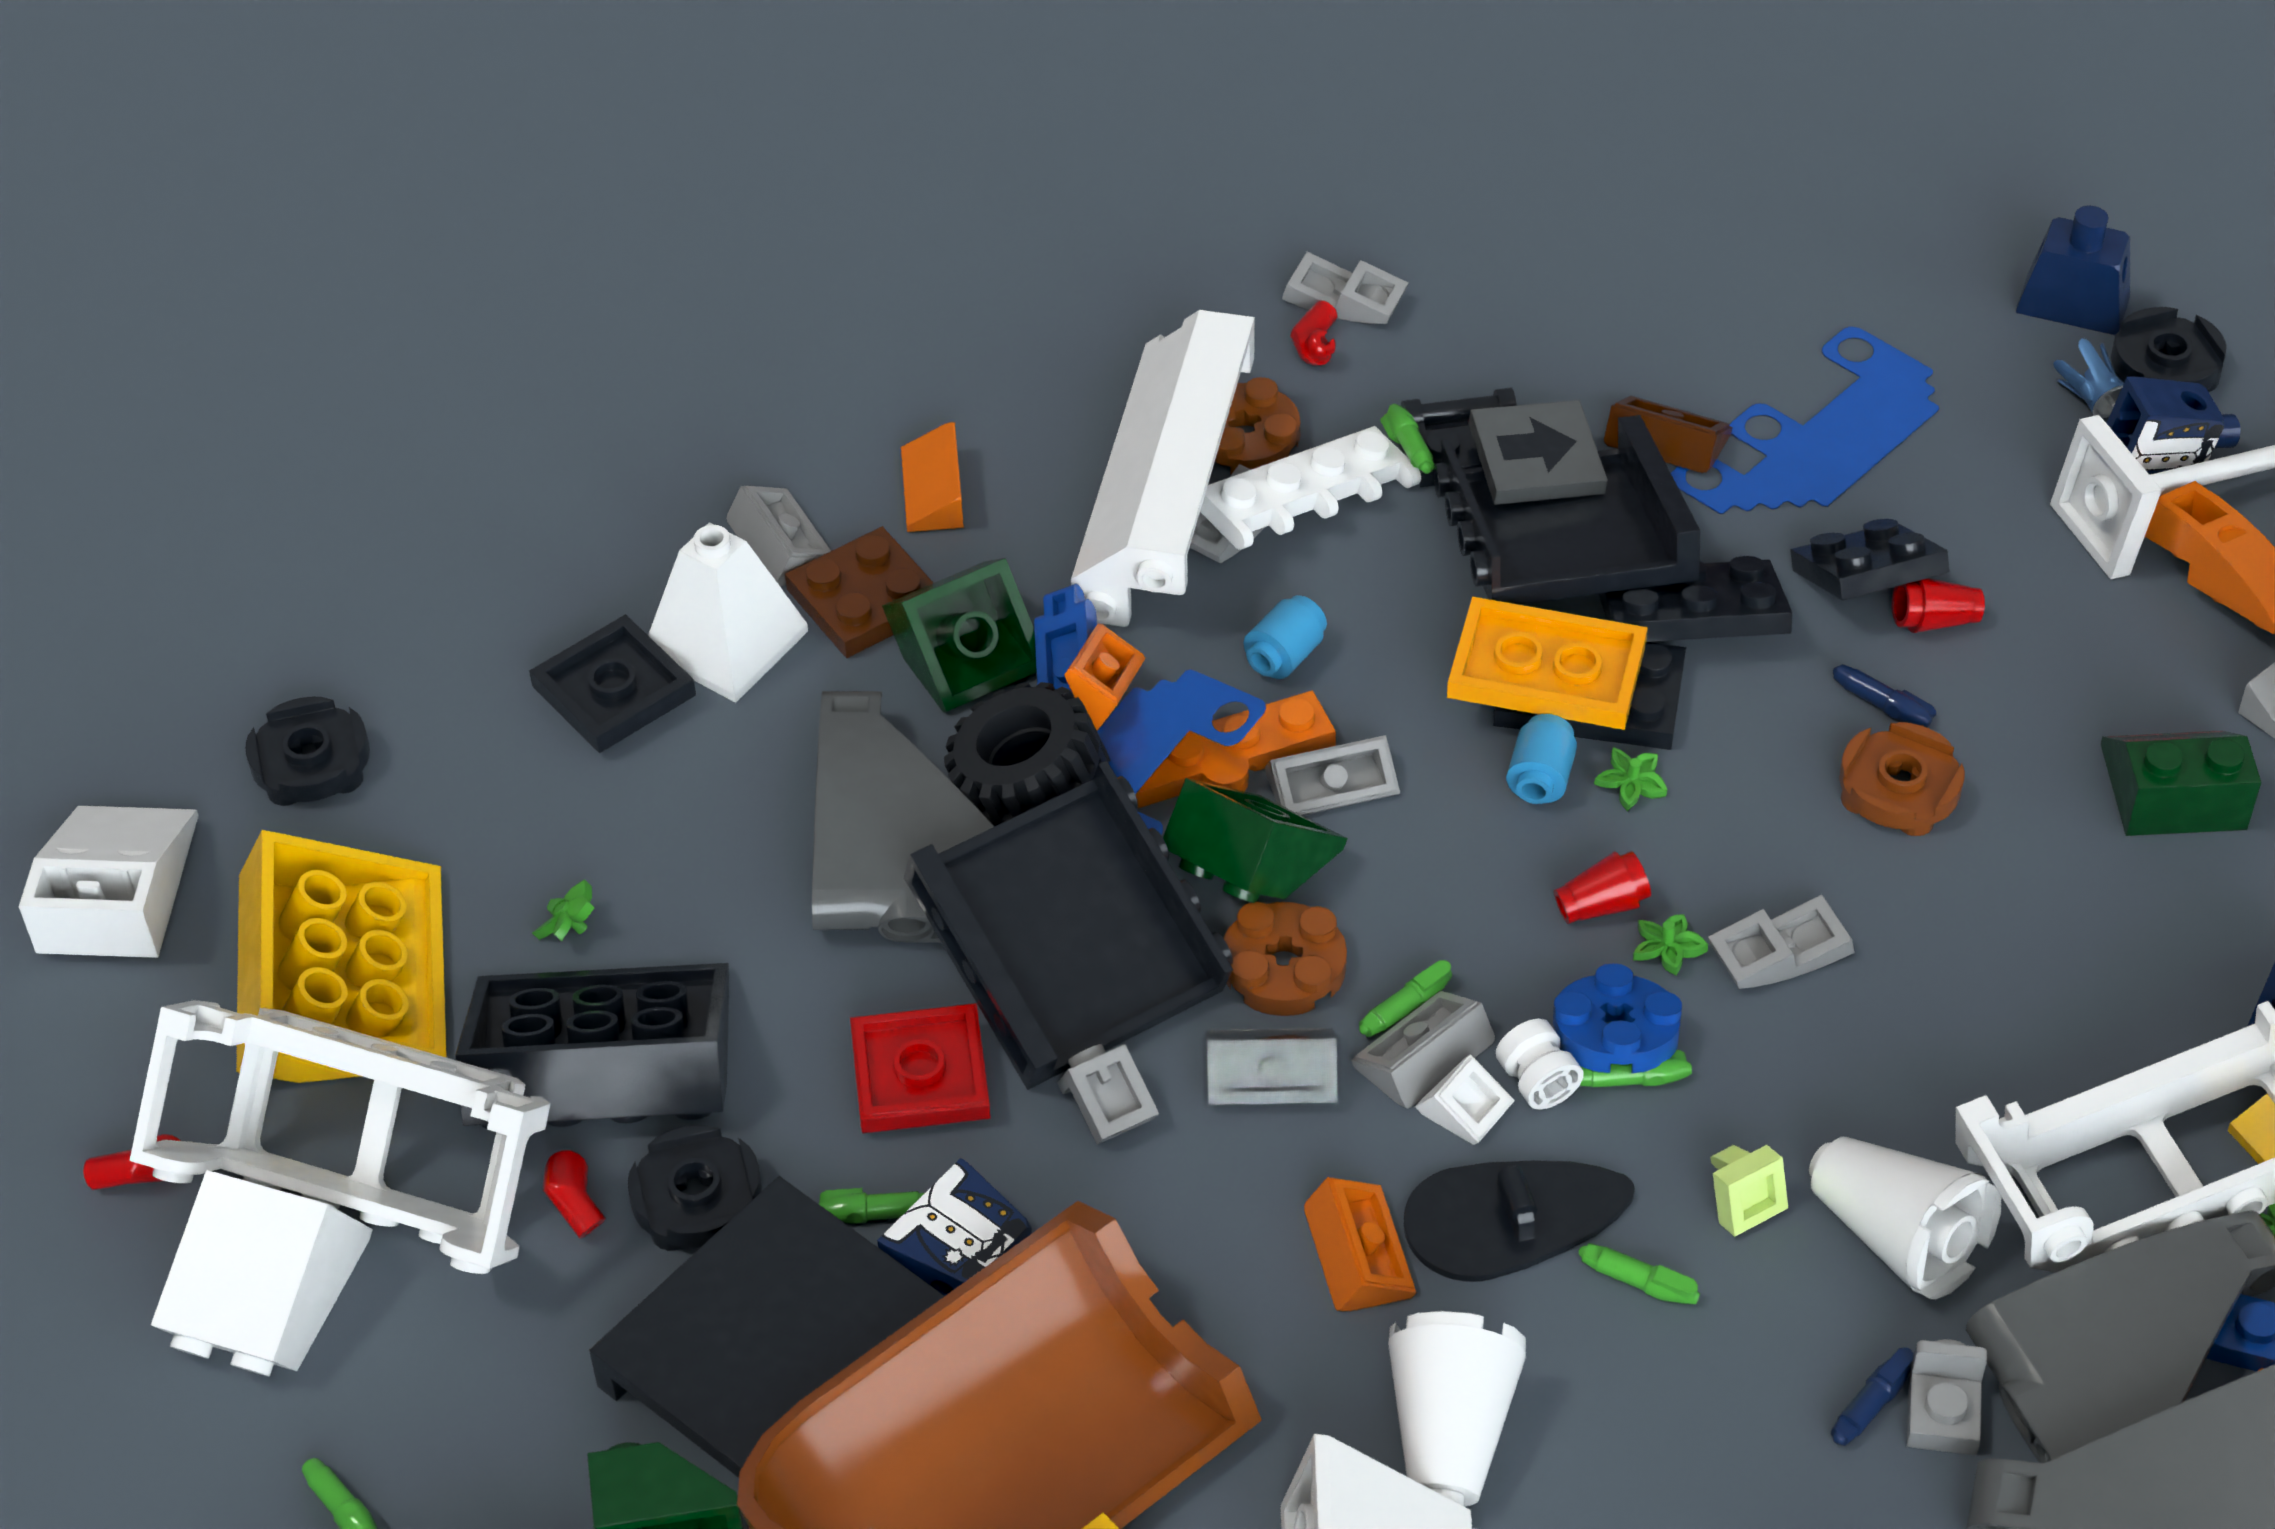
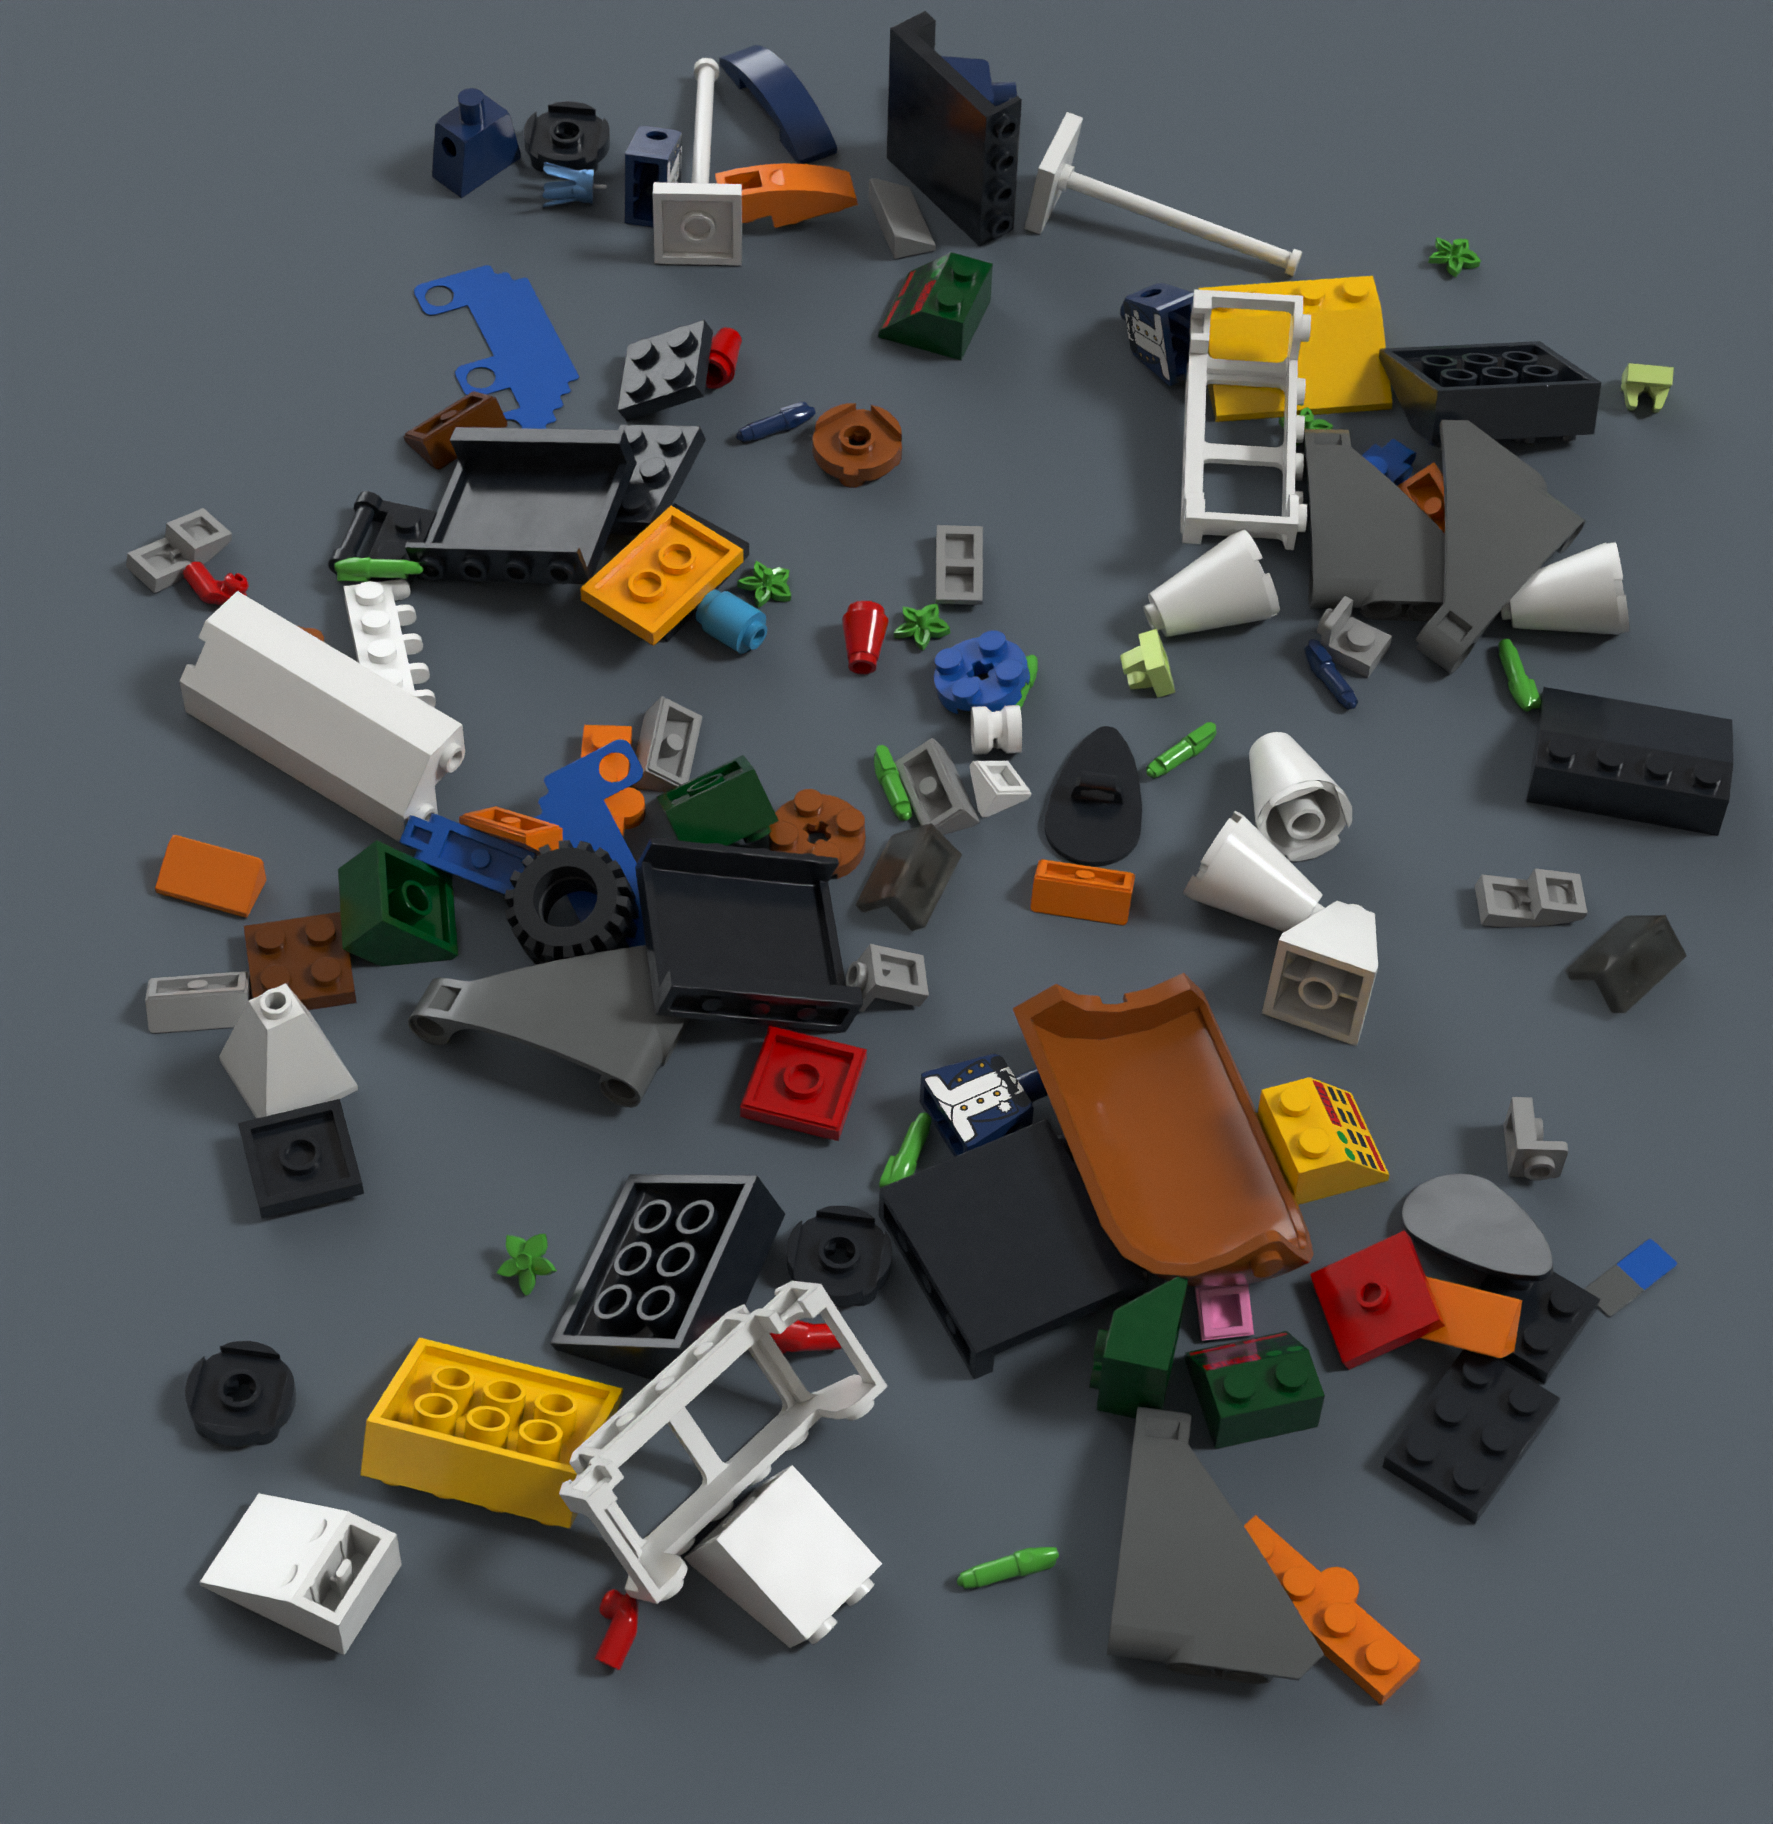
camera: 70 degrees left, 5 degrees up
(1285, 637) = (525, 719): dark azure brick -> none
(1537, 452) = (446, 500): dark grey tile -> none
(1613, 1405) = (1295, 799): none -> white cone

